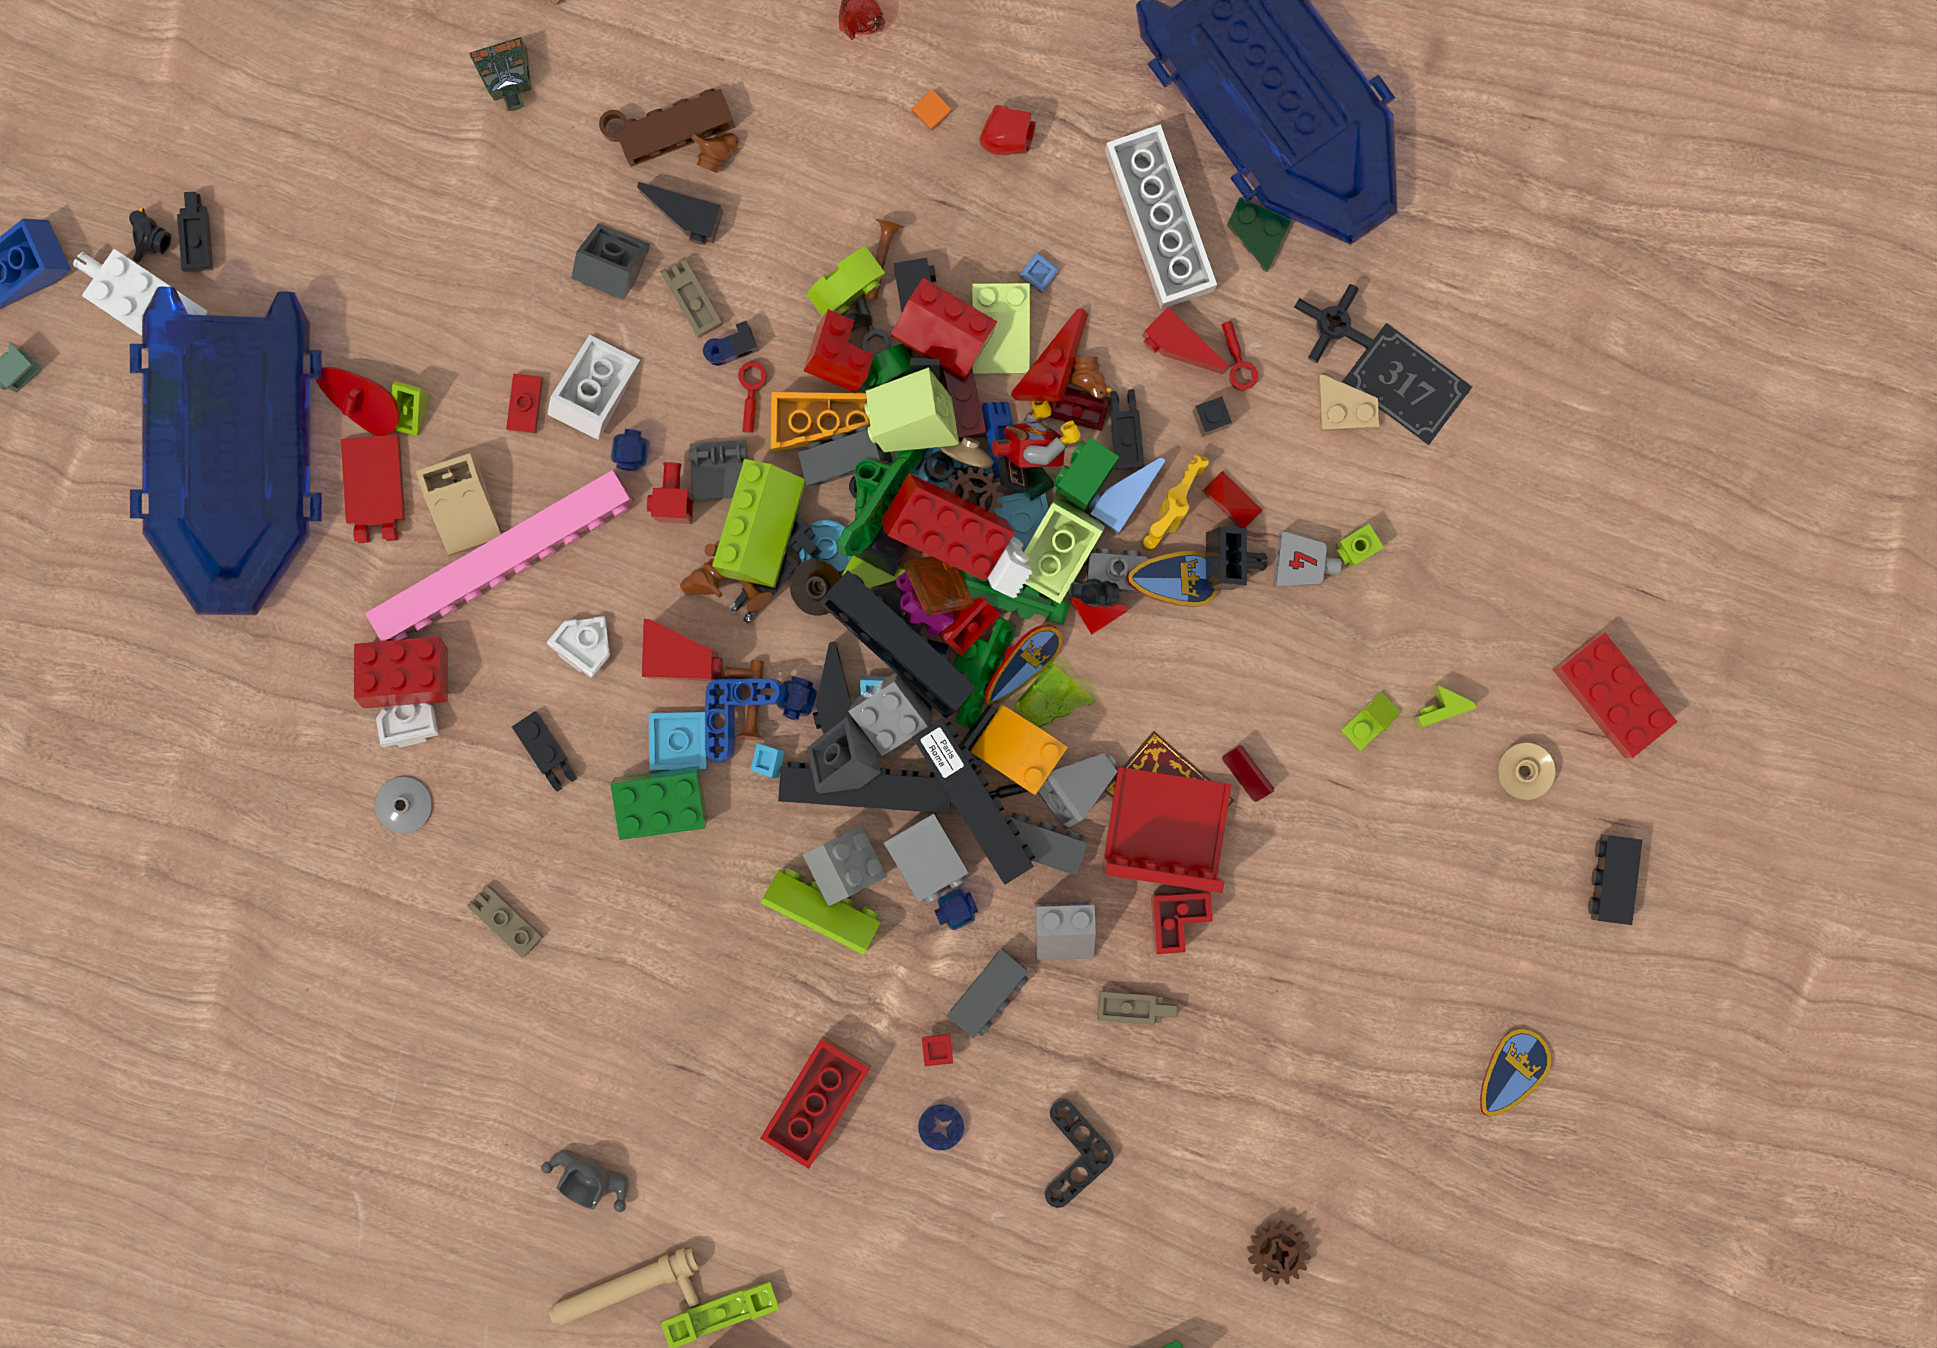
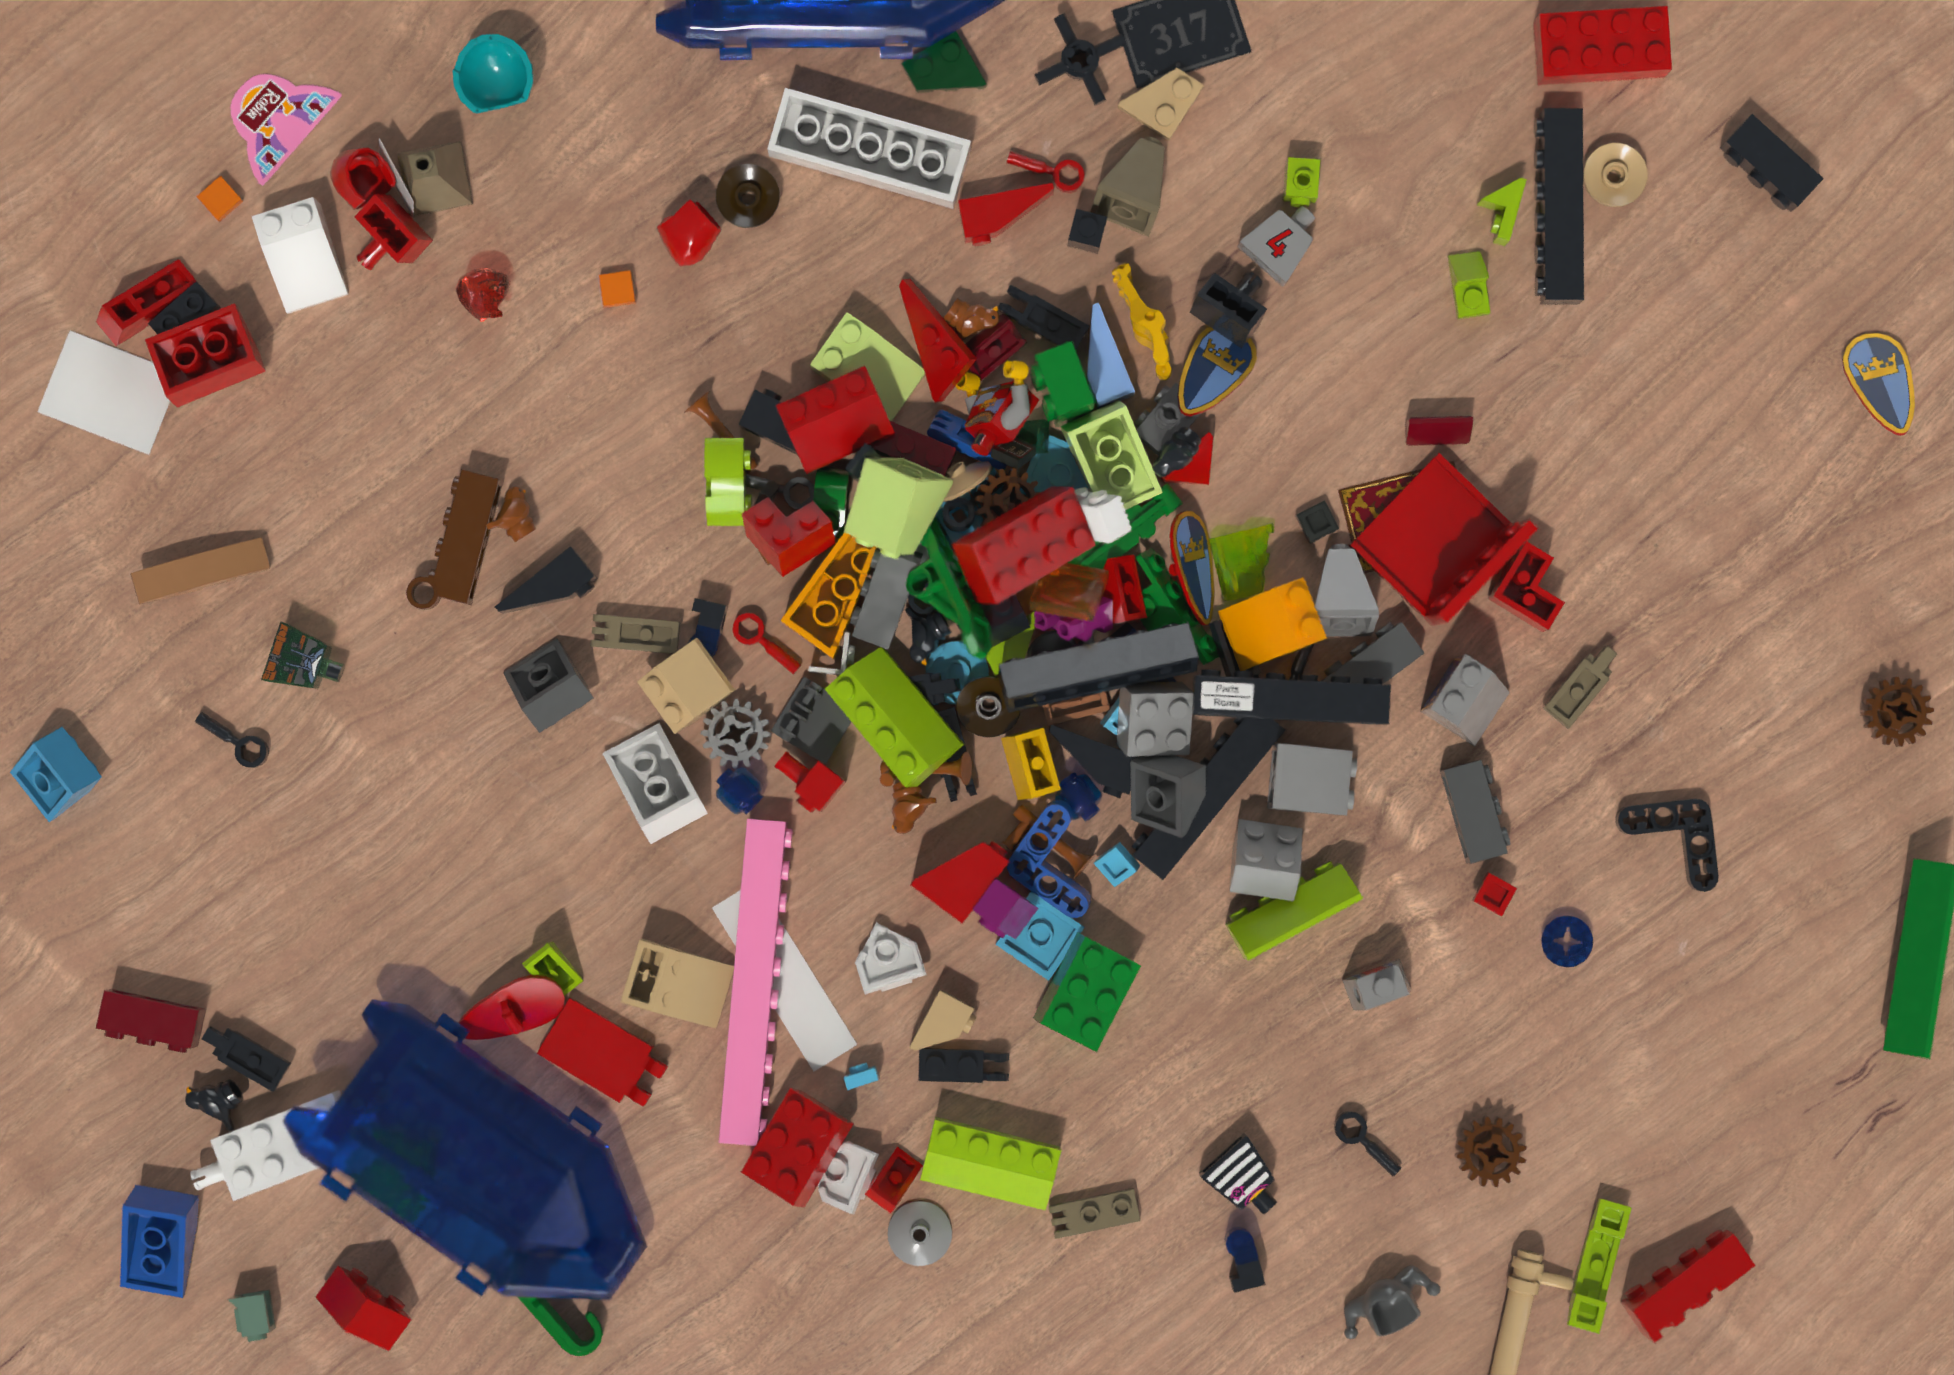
camera: 60 degrees left, 0 degrees up
(67, 442) = (363, 1308): none -> red brick
(153, 596) = (560, 1329): none -> green piece
(173, 147) = (150, 1020): none -> dark red brick
(415, 59) = (228, 736): none -> black piece
(426, 758) = (893, 1180): none -> red slope
(485, 682) = (860, 1076): none -> medium azure plate
(488, 819) = (990, 1163): none -> lime slope
(512, 601) = (801, 998): none -> white sticker
(524, 403) = (624, 859): red plate -> none
(553, 1045) = (1243, 1249): none -> leg
(566, 715) = (944, 1021): none -> tan slope
(604, 1008) = (1241, 1176): none -> black torso
(662, 430) = (741, 747): none -> light grey gear
(675, 701) = (1004, 910): none -> magenta brick
(677, 358) = (686, 686): none -> tan slope
(691, 1090) = (1372, 1148): none -> black piece
(762, 1172) = (1487, 1166): none -> reddish brown gear
(781, 460) = (847, 658): none -> white bracket
(796, 646) = (1030, 763): none -> yellow brick
(811, 1012) = (1377, 986): none -> light grey torso
(815, 1102) = (1464, 1040): red brick -> none
(836, 506) = (926, 634): none -> black animal
(845, 632) = (1051, 721): none -> nougat tile
(956, 909) = (1377, 786): clear blue head -> none
(1039, 272) = (839, 296): medium blue tile -> none
(1067, 141) = (743, 180): none -> dark brown dish
(1119, 731) = (1317, 522): none -> pearl dark grey tile
(1232, 500) = (1176, 267): red slope -> none
(1266, 425) = (1133, 188): none -> dark tan slope
(1475, 747) = (1560, 206): none -> black brick

